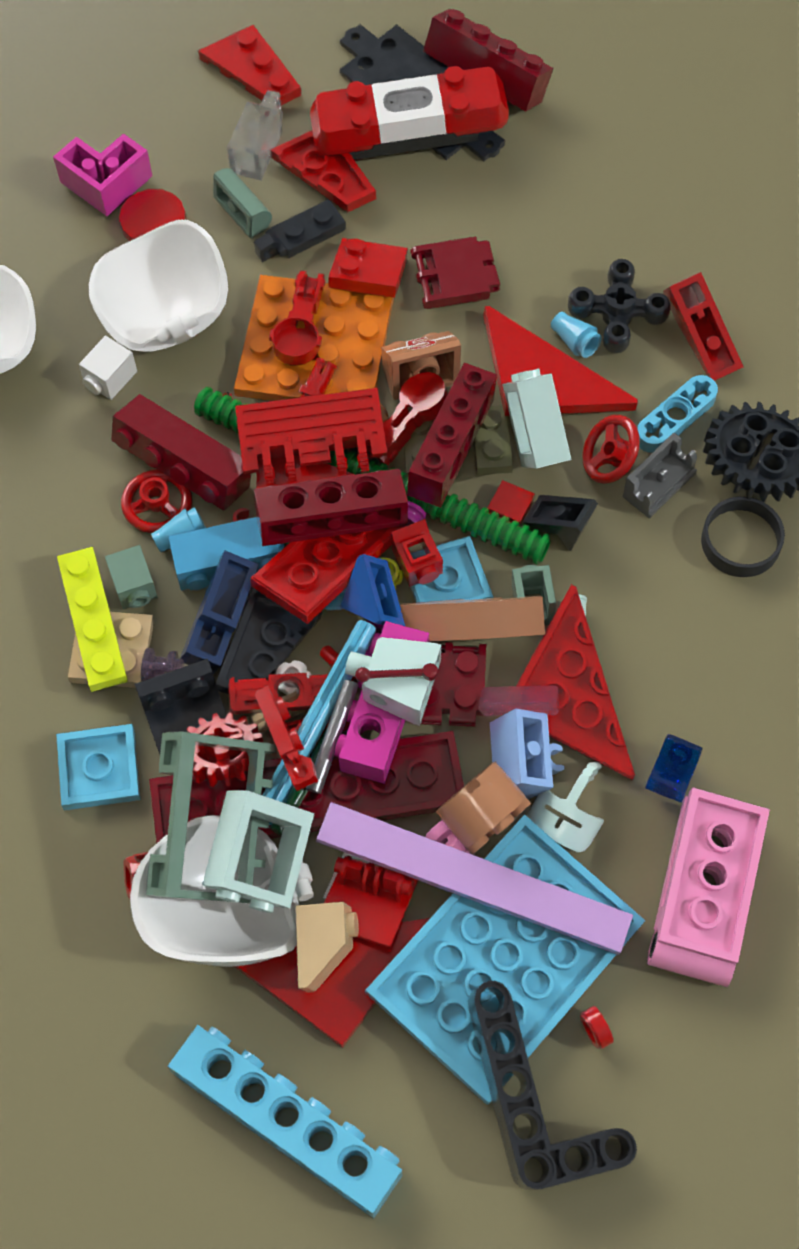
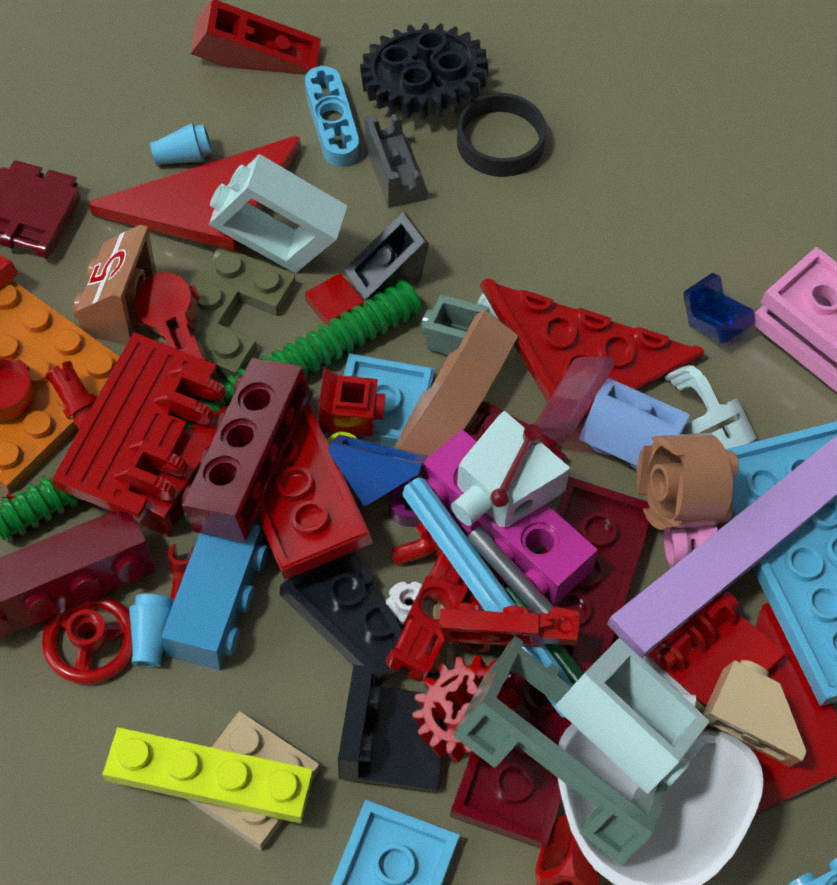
camera: 65 degrees left, 5 degrees down
(131, 577) = (178, 708): sand green brick -> none
(156, 665) = (321, 724): clear purple wheel -> none
(219, 611) = (291, 634): dark blue slope -> none
(451, 435) = (237, 294): dark red brick -> none
(613, 451) = (353, 172): red piece -> none
(619, 306) = (179, 95): black gear -> none

